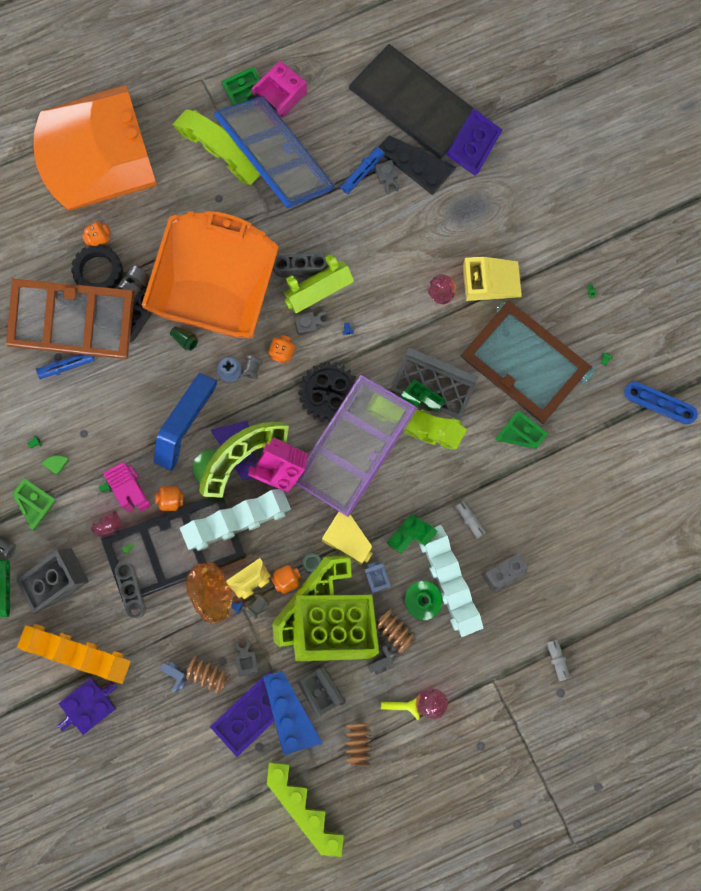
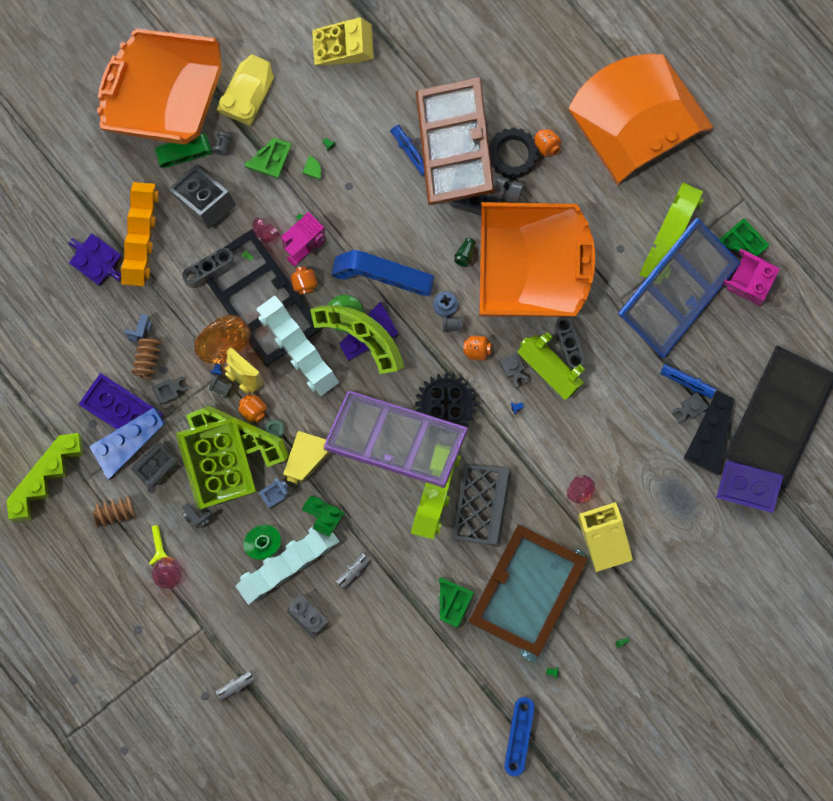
camera: 80 degrees right, 0 degrees up
(279, 465) = (359, 373): dark pink piece -> none
(395, 631) = (226, 522): medium nougat piece -> none
(419, 393) = (465, 492): green plate -> none

